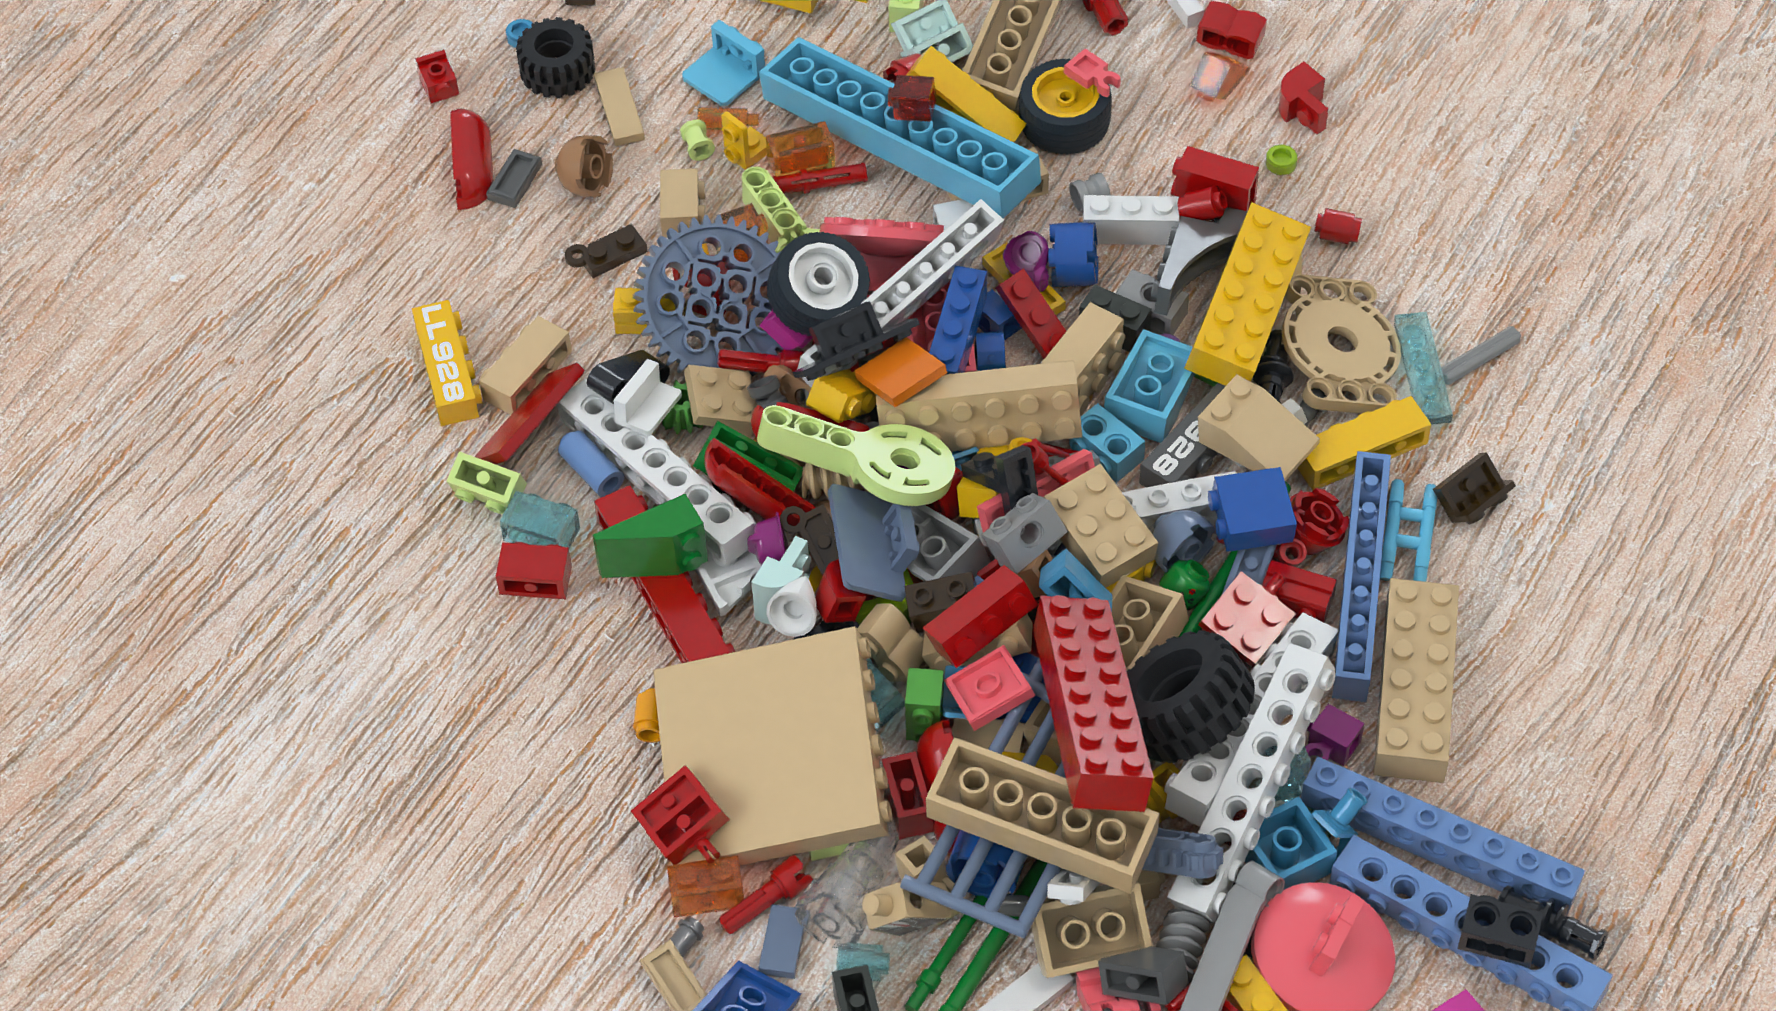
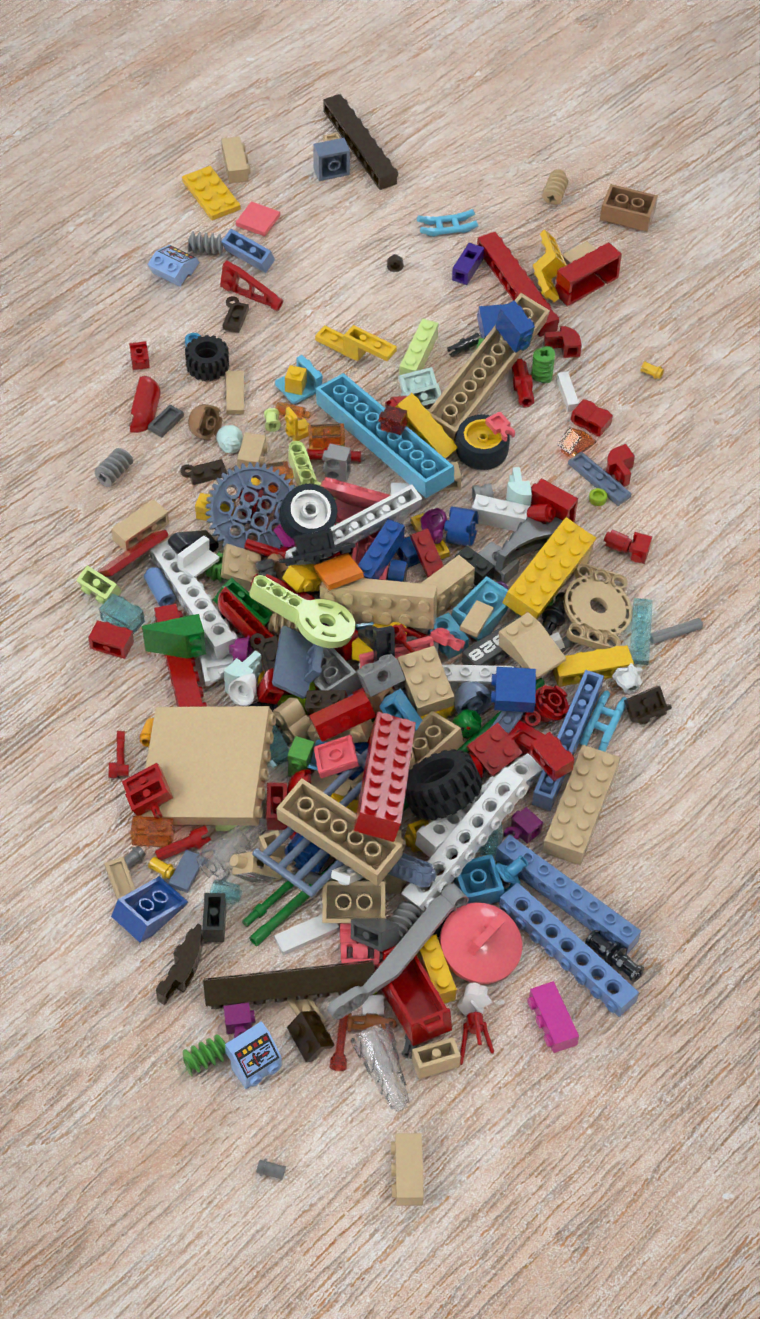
camera: 10 degrees right, 0 degrees up
(445, 362) = (97, 515): yellow brick -> none
(450, 272) = (113, 466): none -> light grey piece
(613, 789) = (119, 768): none -> red brick
(634, 186) = (229, 438): none -> light aqua hair
(719, 64) = (295, 380): none -> yellow brick
(739, 945) = (161, 867): none -> yellow pin
(832, 189) = (337, 462): none -> light grey brick
(1107, 448) = (444, 638): none -> coral plate
(1151, 173) = (518, 490): none -> light aqua brick
(1151, 404) = (476, 618): none -> tan tile
(1274, 127) = (599, 478): none -> sand blue tile
(1350, 608) = (552, 756): none -> red brick
(1378, 228) = (640, 547): none -> red brick
(1428, 451) = (628, 678): none -> white piece
(1498, 939) = (578, 956): black brick -> none

